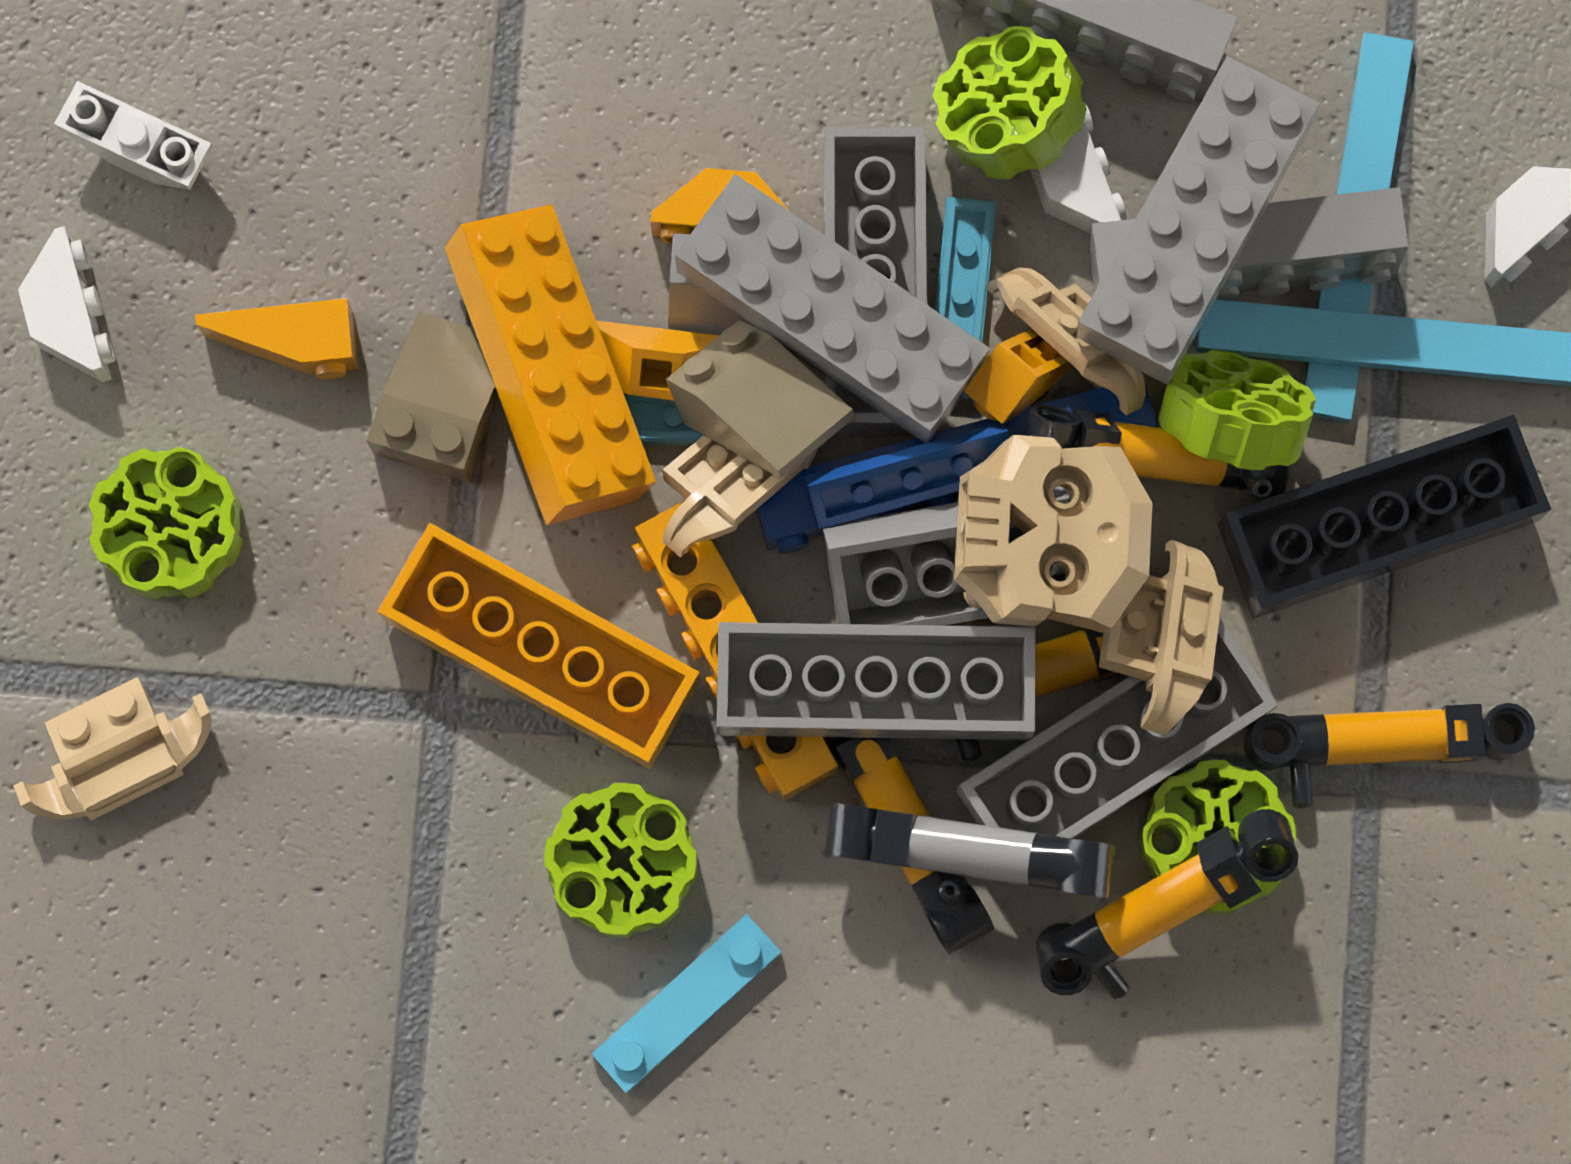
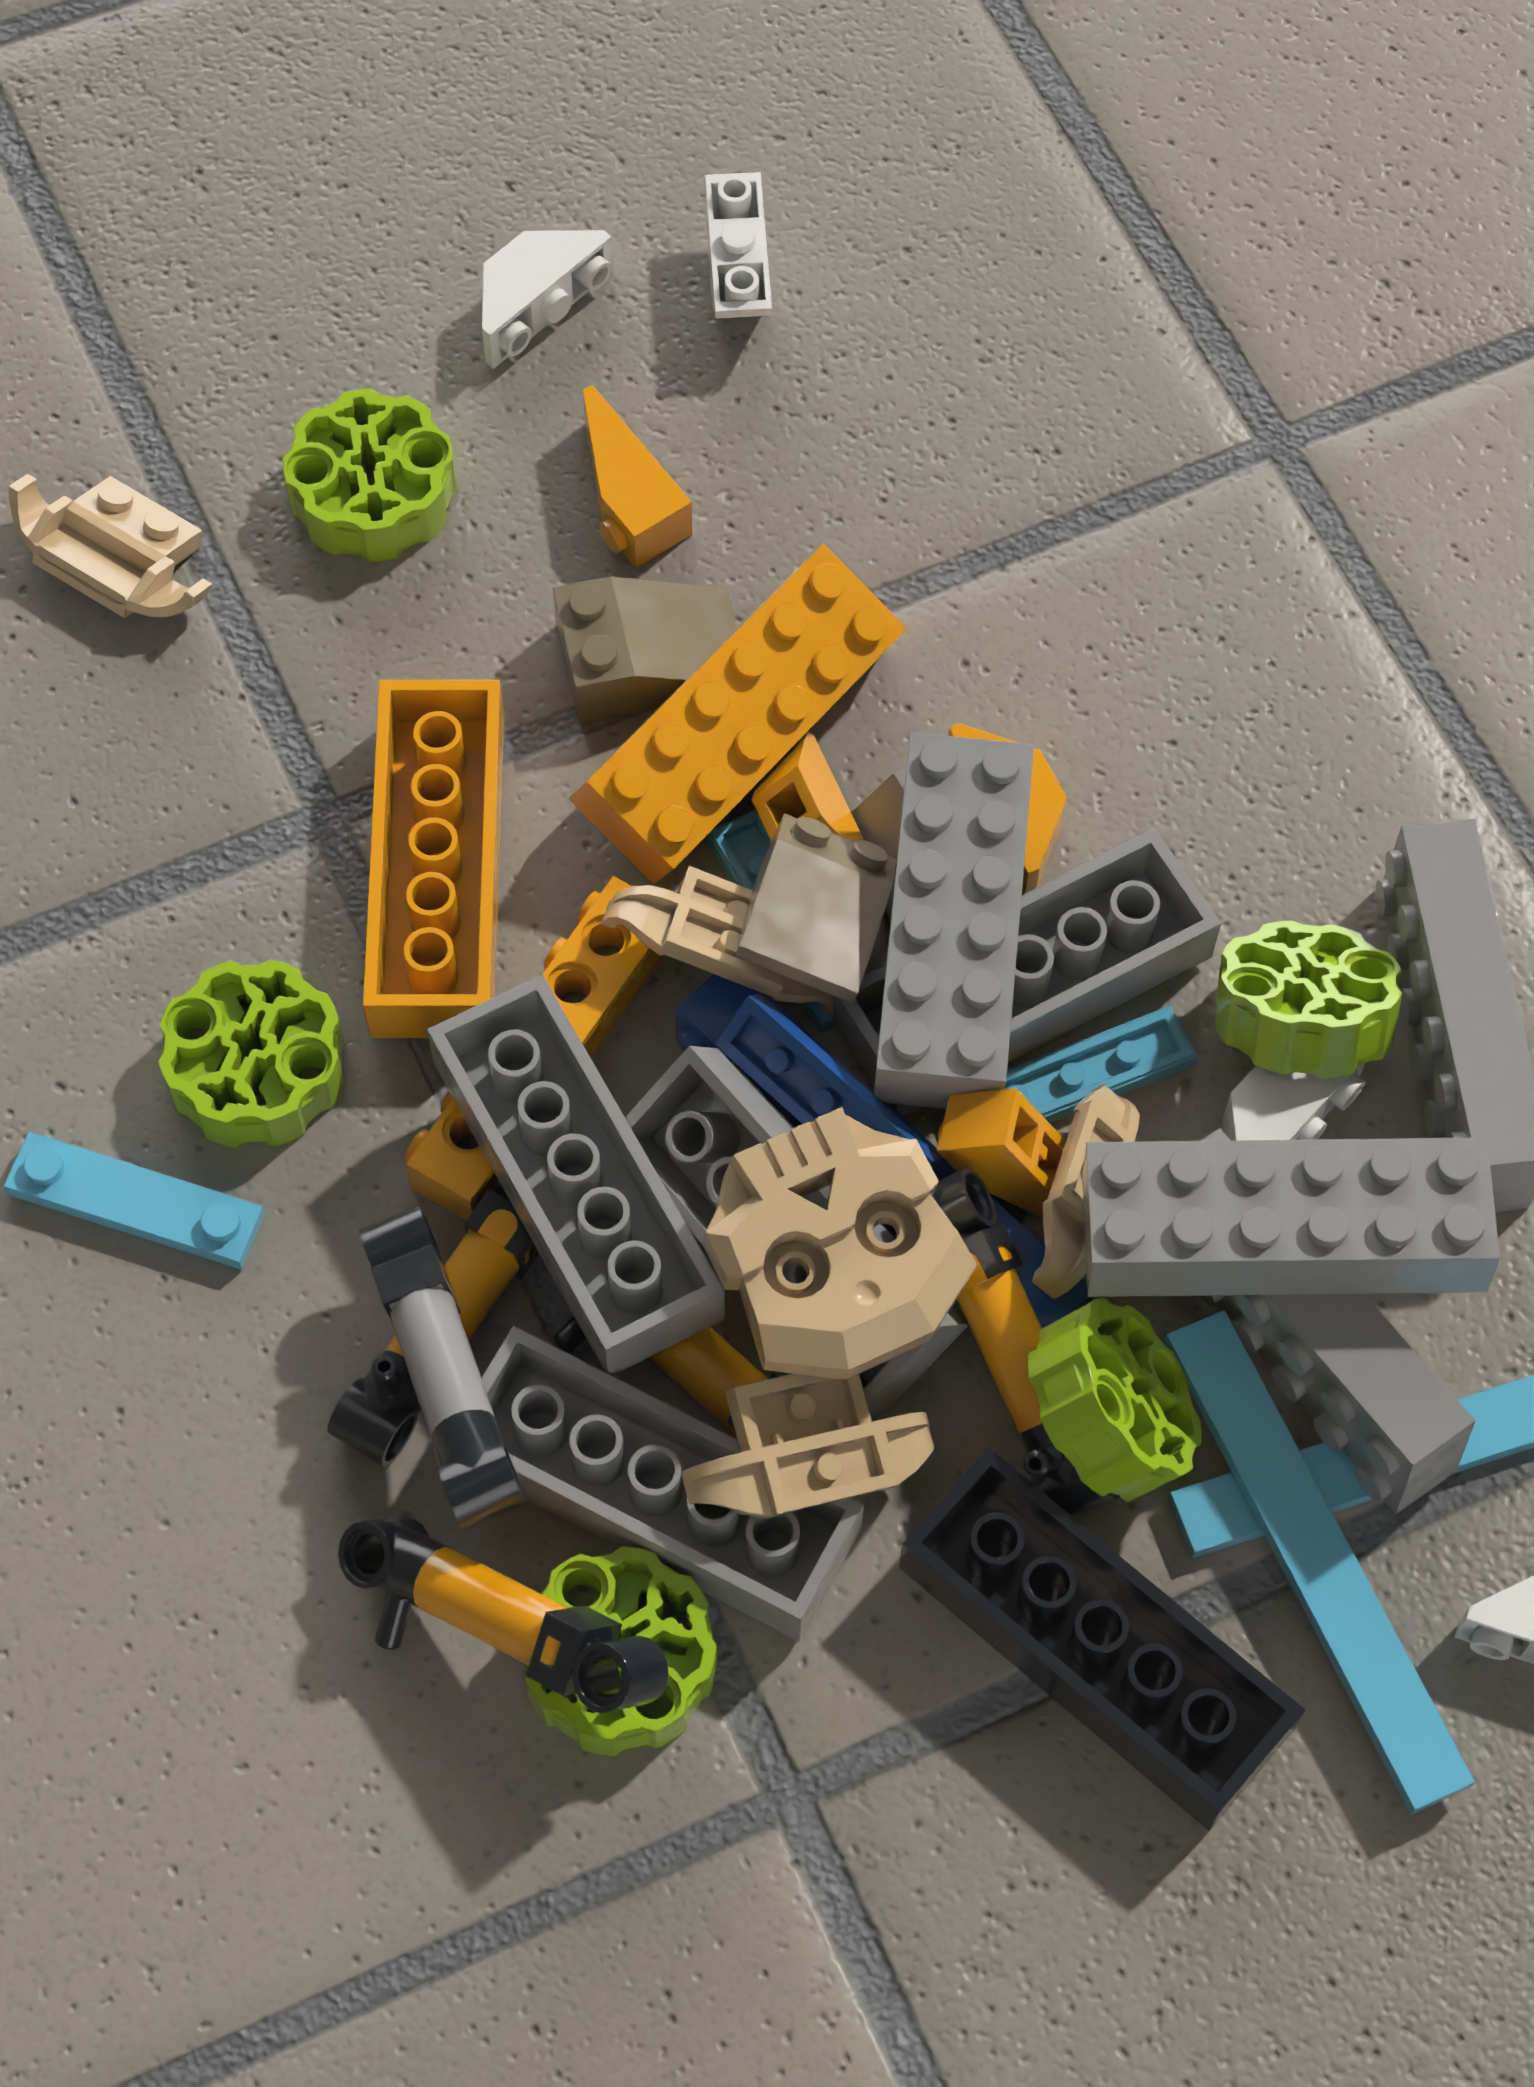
camera: 60 degrees right, 15 degrees down
(1441, 734) = (889, 1848): piece -> none

